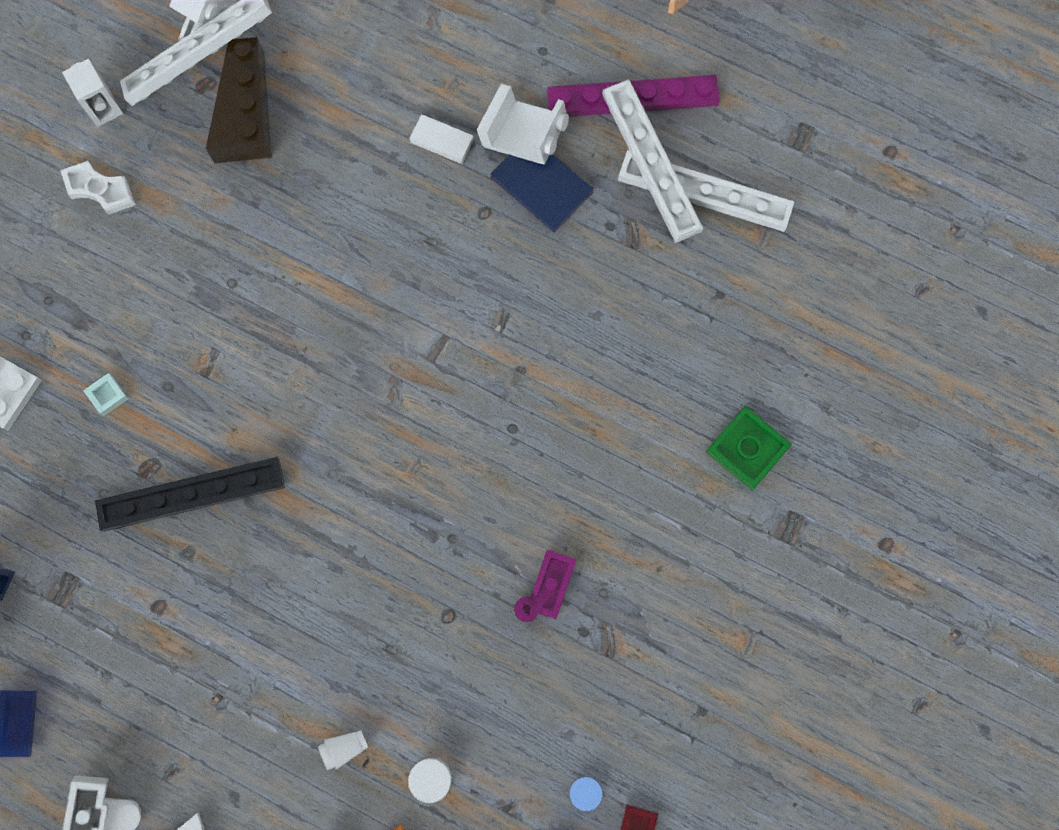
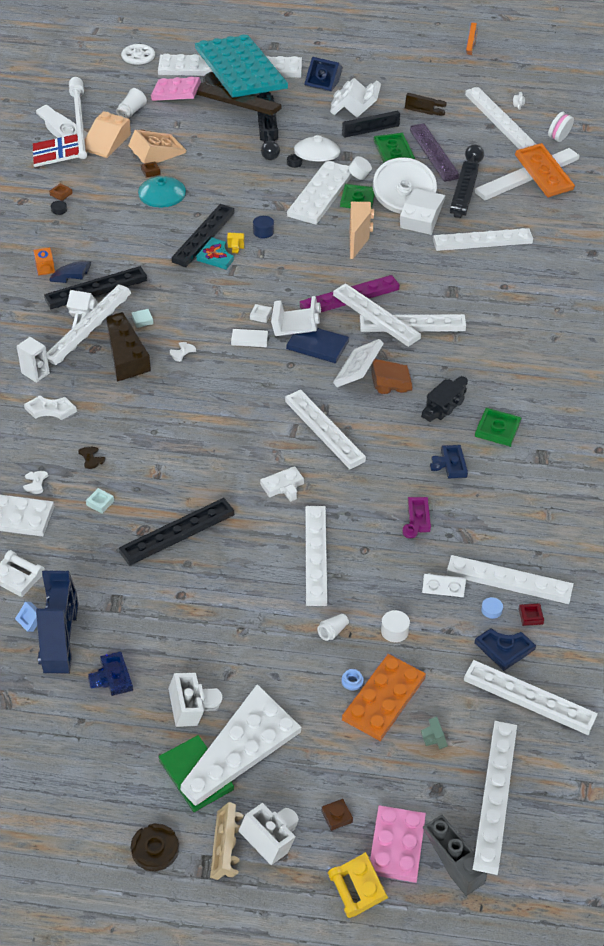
camera: 20 degrees left, 30 degrees down
(35, 320) = (36, 486): none -> white piece
(119, 313) = (90, 461): none -> dark brown piece
(295, 45) = (142, 318): none -> light aqua tile
(323, 138) = (186, 348): none -> white piece
(372, 605) = (316, 556): none -> white plate
(379, 451) = (283, 482): none -> white hinge
(479, 91) = (260, 313): none -> white tile
(480, 368) = (325, 429): none -> white plate
(519, 723) = (444, 585): none -> white hinge
(581, 256) = (358, 363): none -> white tile
(625, 292) = (390, 376): none -> dark orange slope
(636, 750) = (510, 579): none -> white plate
(646, 498) = (452, 460): none -> dark blue plate
(685, 369) = (445, 398): none -> black hinge
(901, 38) = (482, 239): none -> white plate

